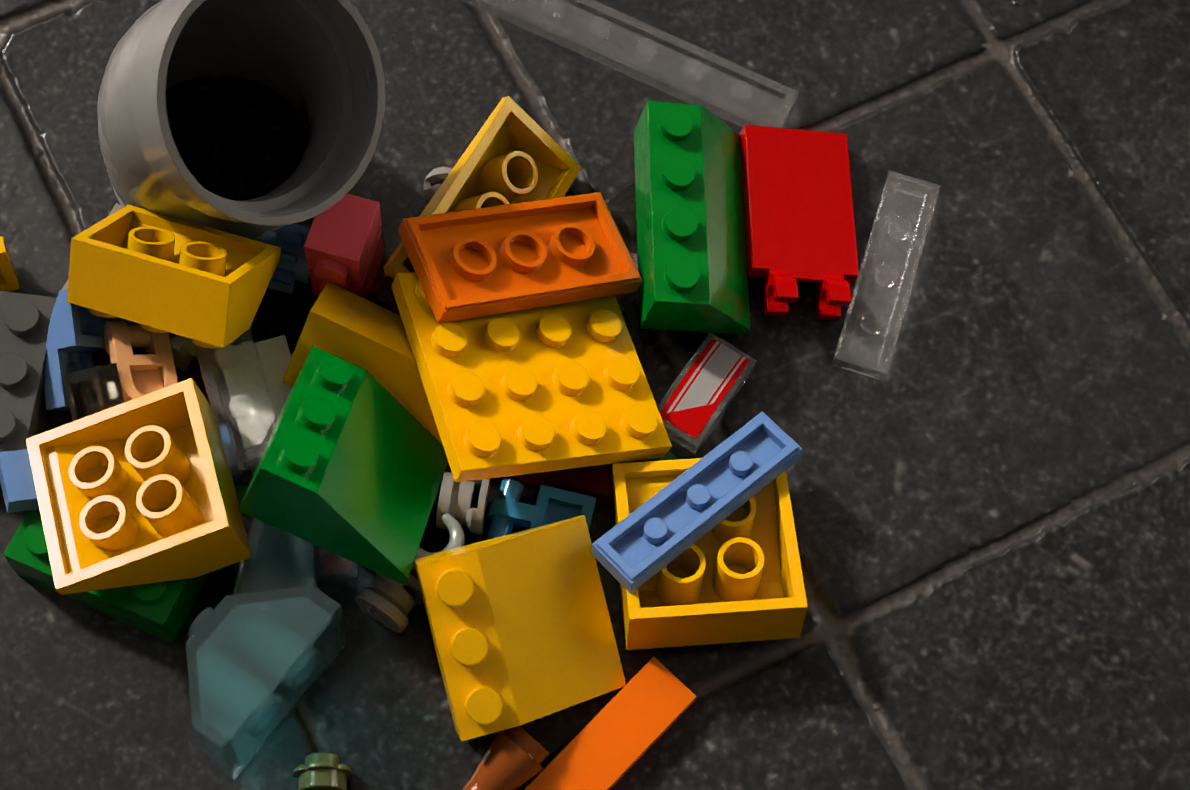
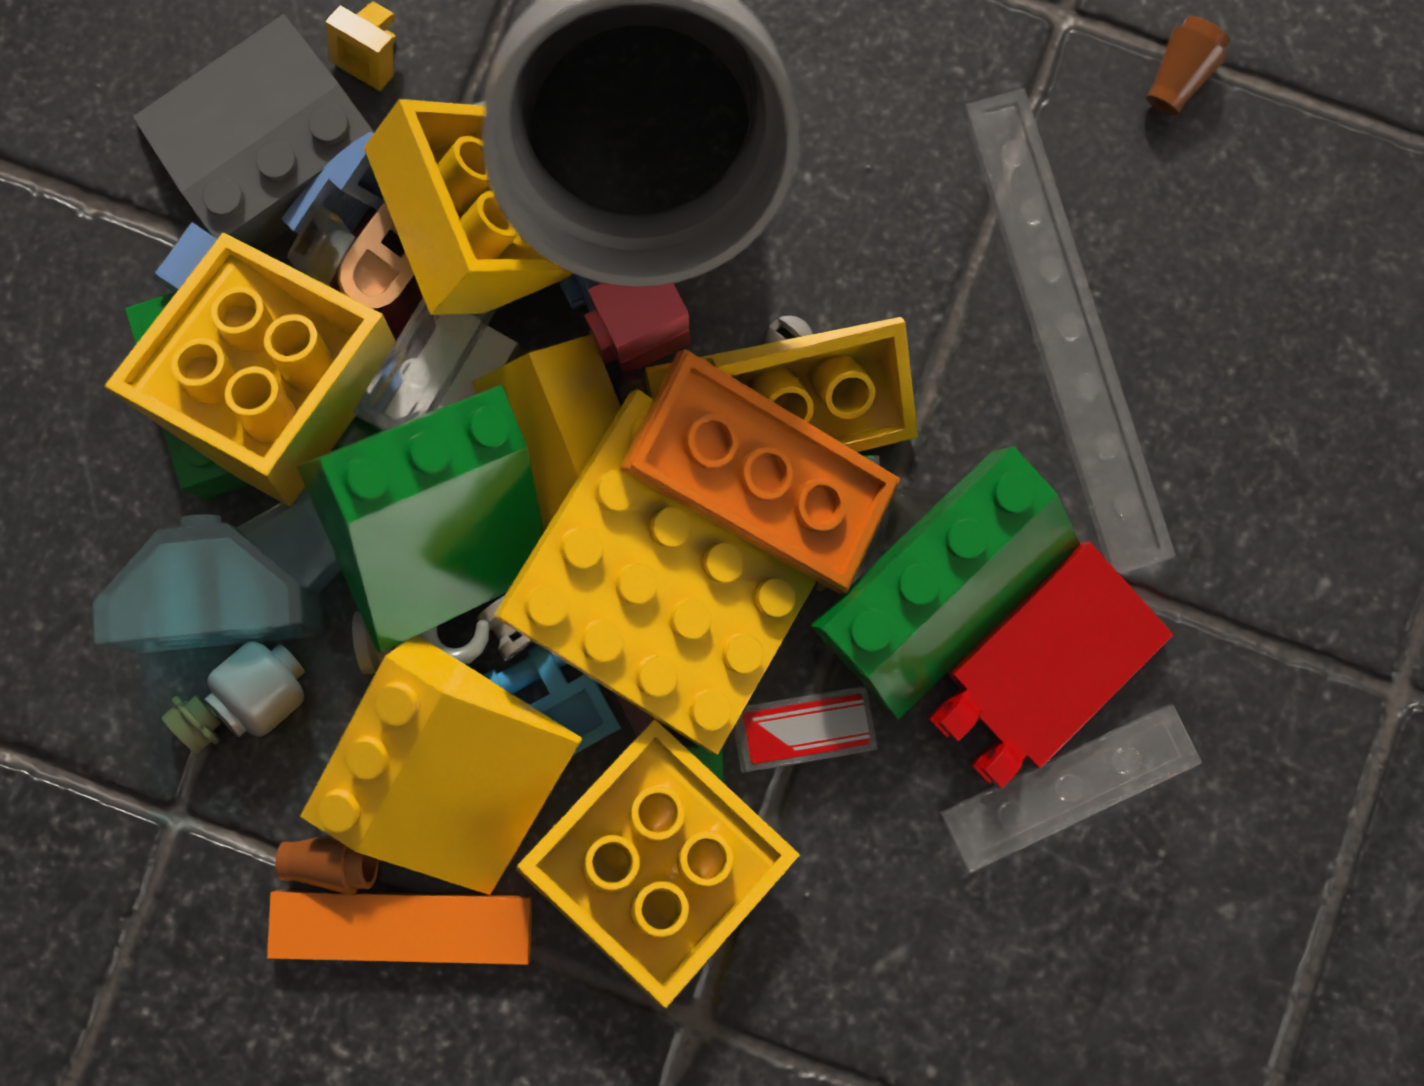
camera: 55 degrees right, 15 degrees up
(342, 710) = (255, 689): none -> light grey head
(696, 502) = (680, 825): medium blue tile -> none

